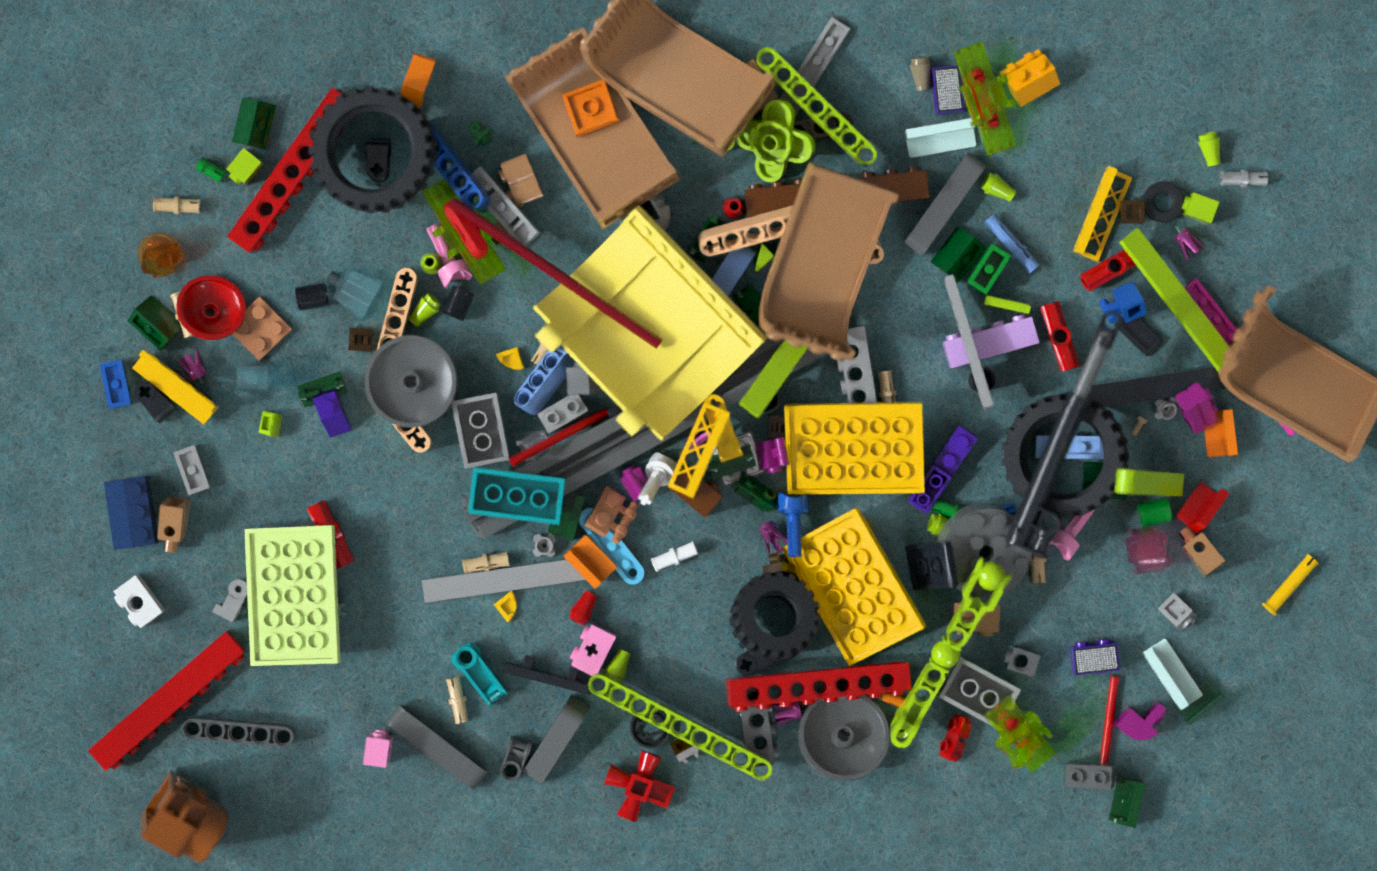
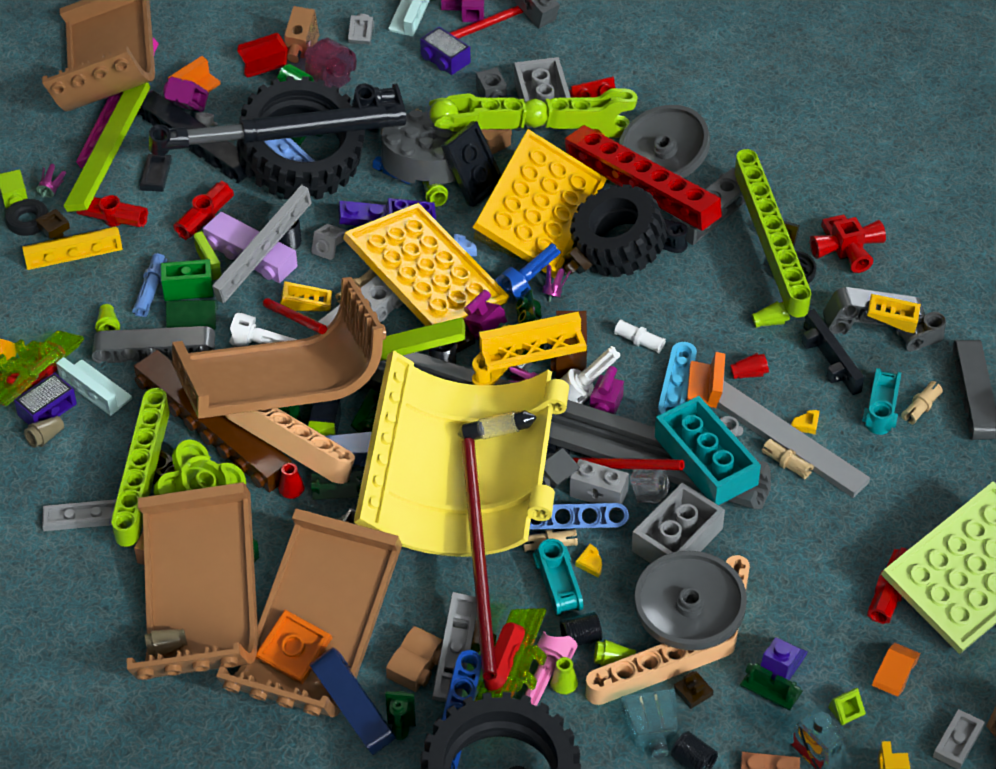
camera: 130 degrees left, 40 degrees down
(269, 478) = (895, 669): none -> orange slope
(509, 323) = (558, 576): none -> teal piece
(518, 110) = (352, 700): none -> dark blue beam
(518, 750) = (908, 312): none -> yellow slope
(592, 663) = (776, 336): bright pink brick -> none
(605, 511) = (653, 399): nougat plate -> none
(650, 369) = (497, 425): none -> piece
(659, 27) = (164, 641): none -> dark tan cone
(869, 504) = (468, 246): none -> light blue tile
(886, 319) = (295, 316): none -> red bar
(902, 275) = (245, 331): none -> white piece
(919, 346) = (291, 297): none -> yellow slope
(945, 508) = (416, 192): green pin -> none
(953, 408) = (326, 240): none -> light grey bracket
(1023, 731) = (549, 38): clear neon green piece -> none
(1126, 302) = (137, 185): blue brick -> none
(1149, 482) = (276, 67): lime beam -> none

